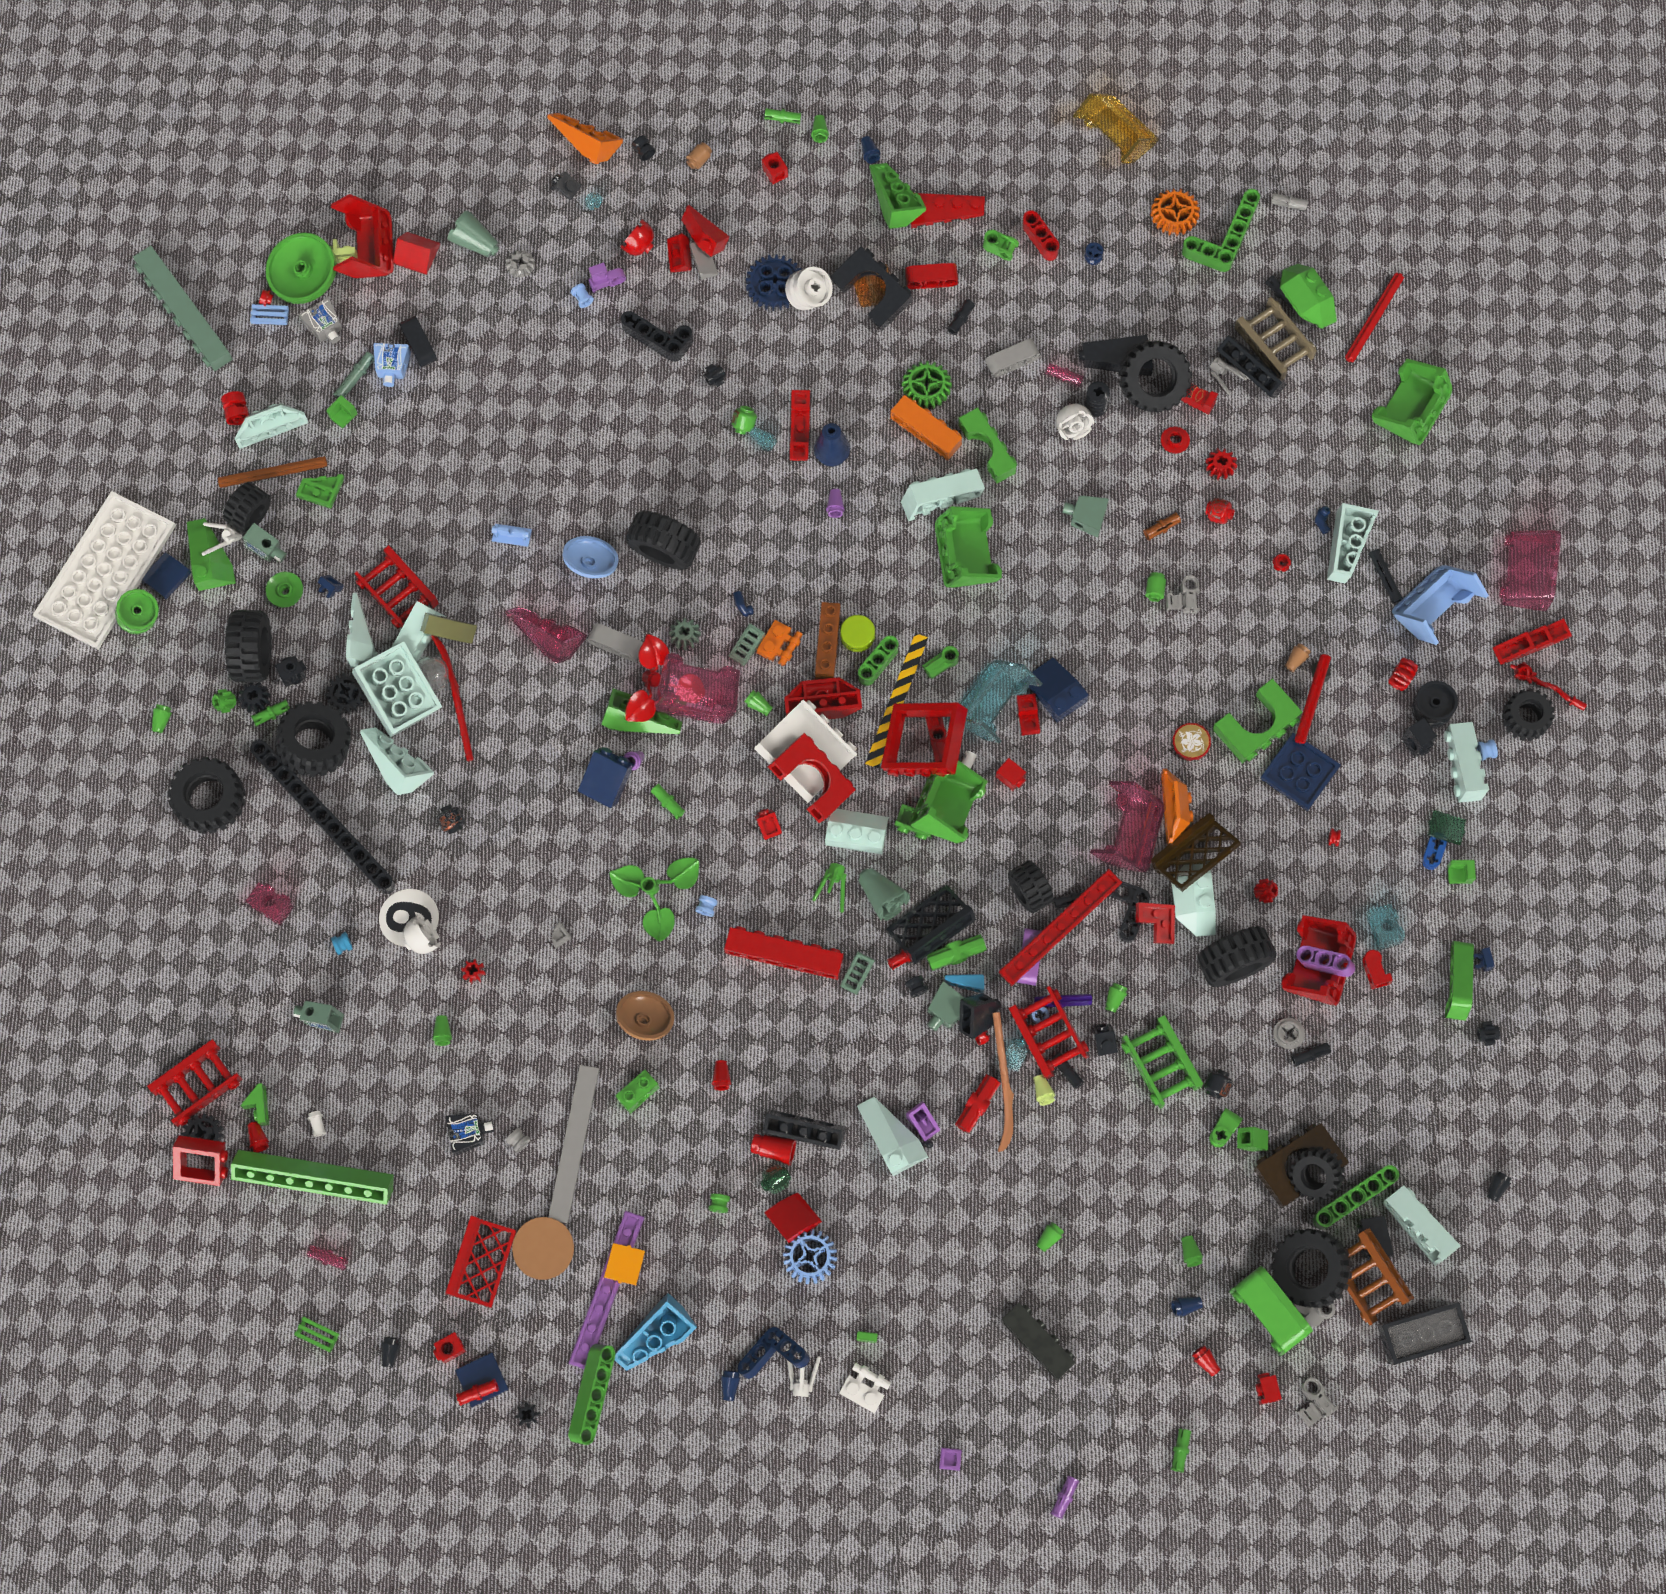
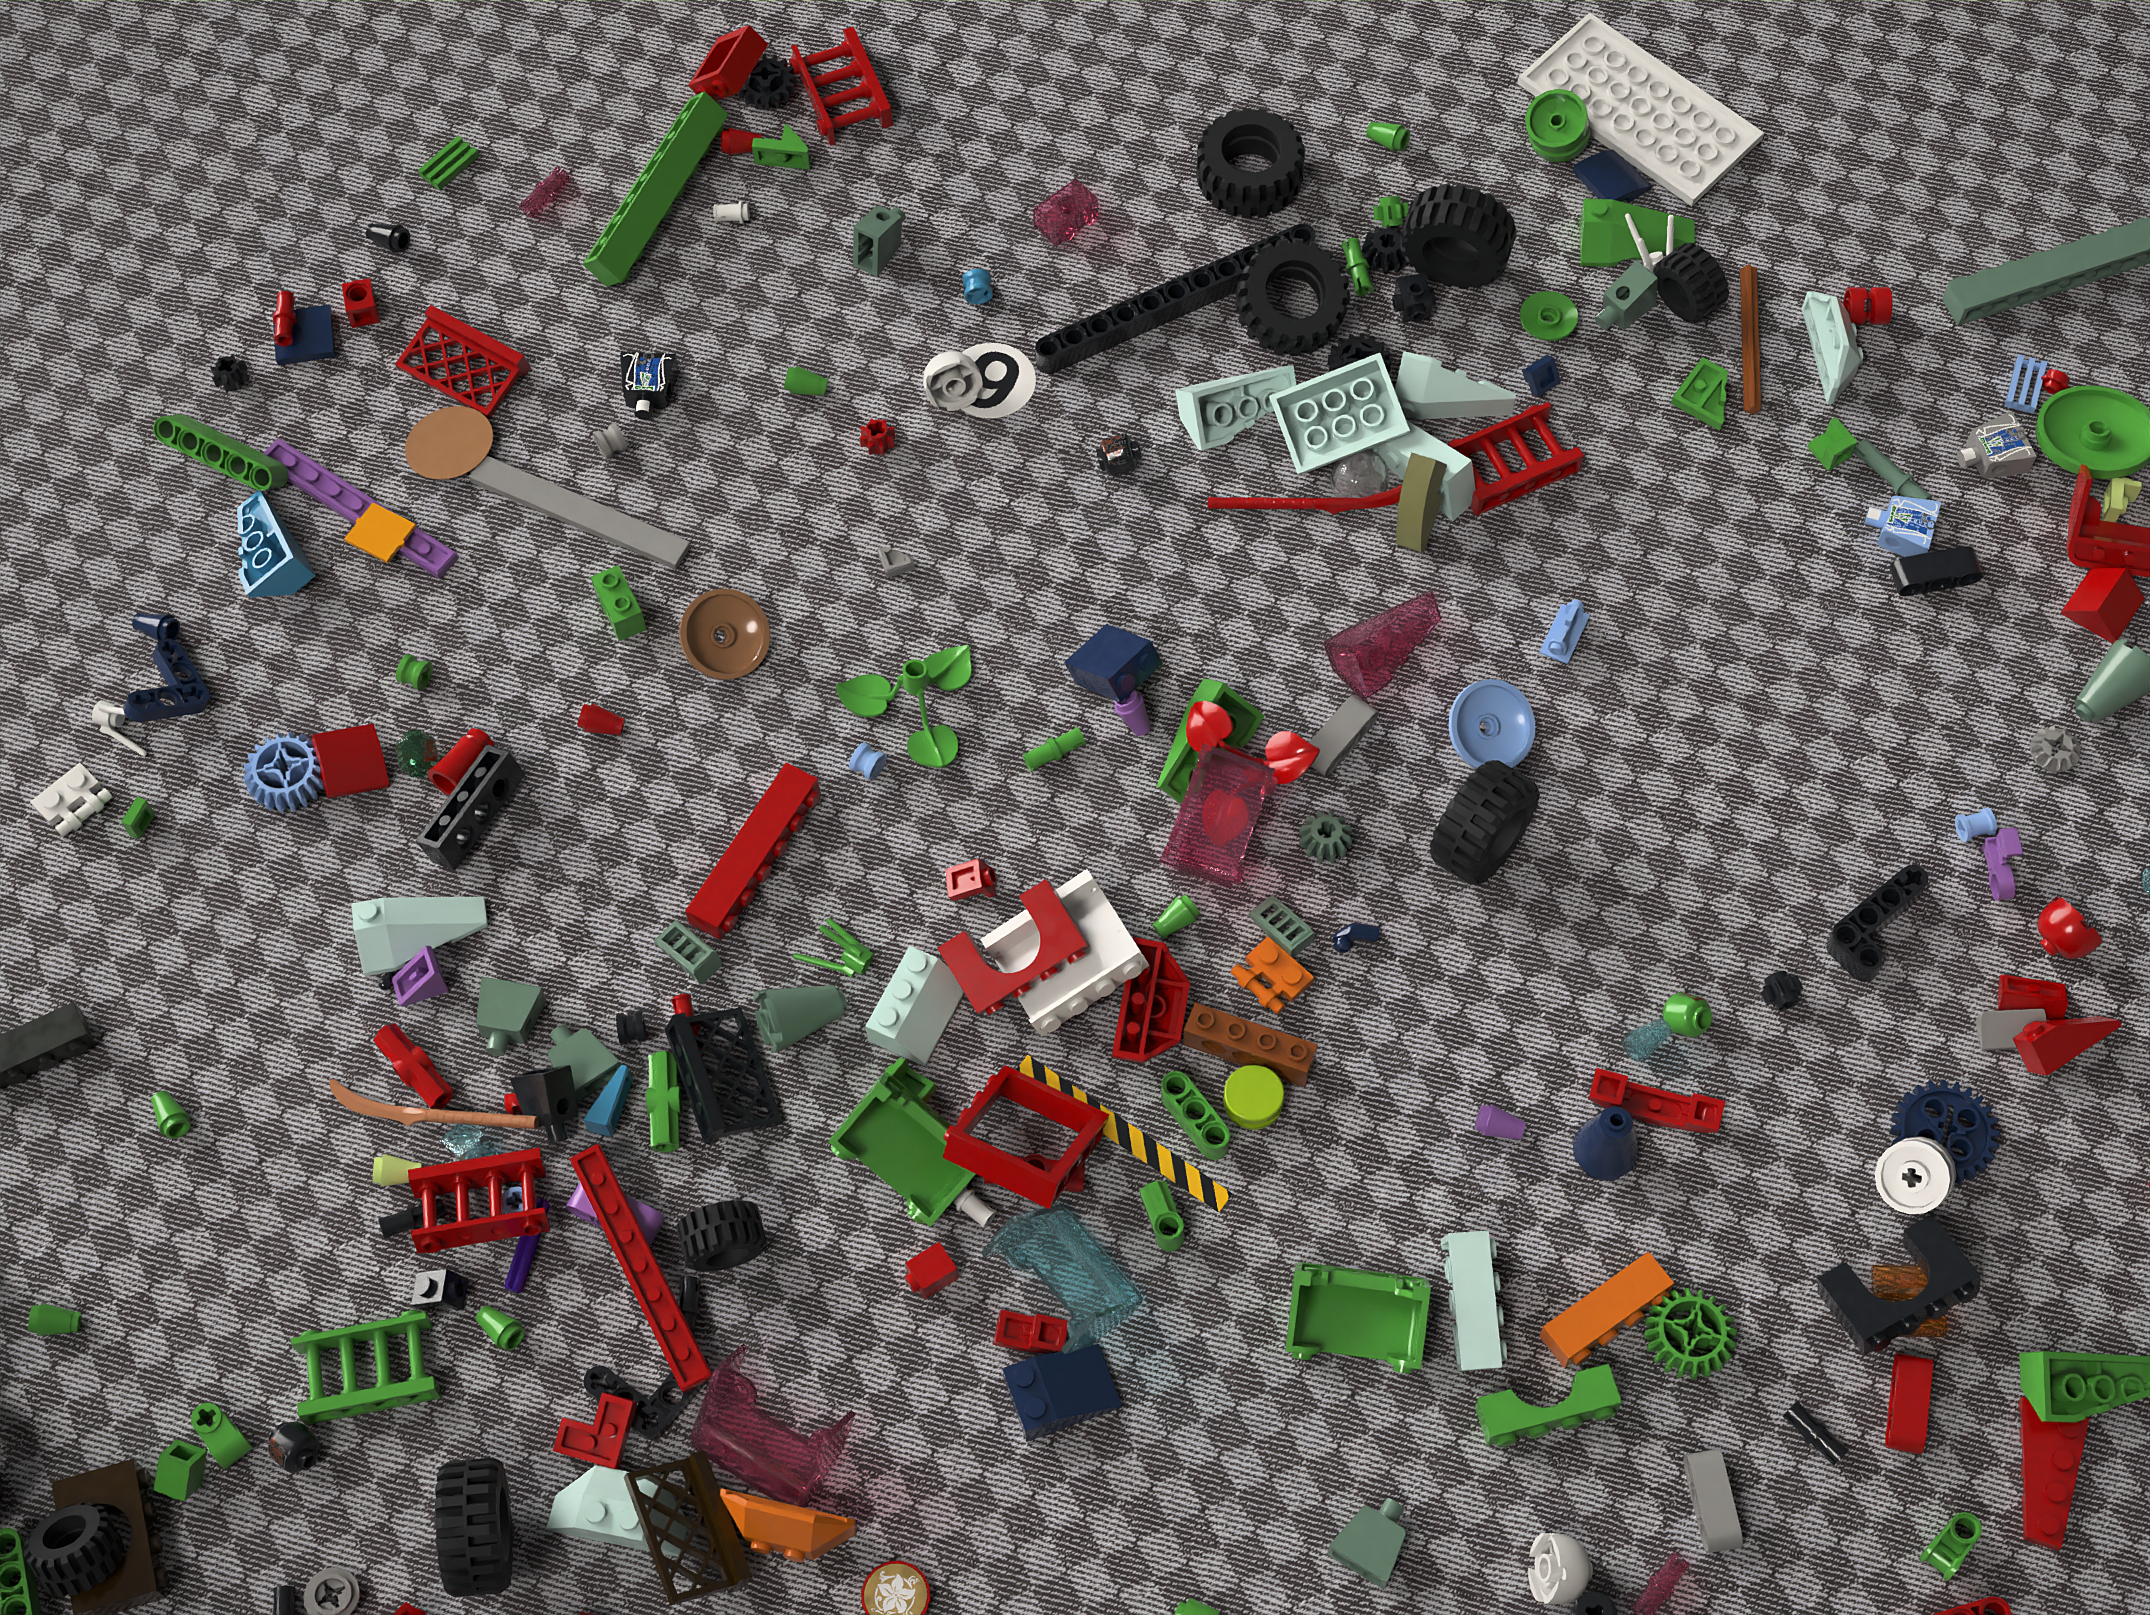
camera: 105 degrees right, 10 degrees down
(929, 1061) = (507, 1012): none -> sand green torso

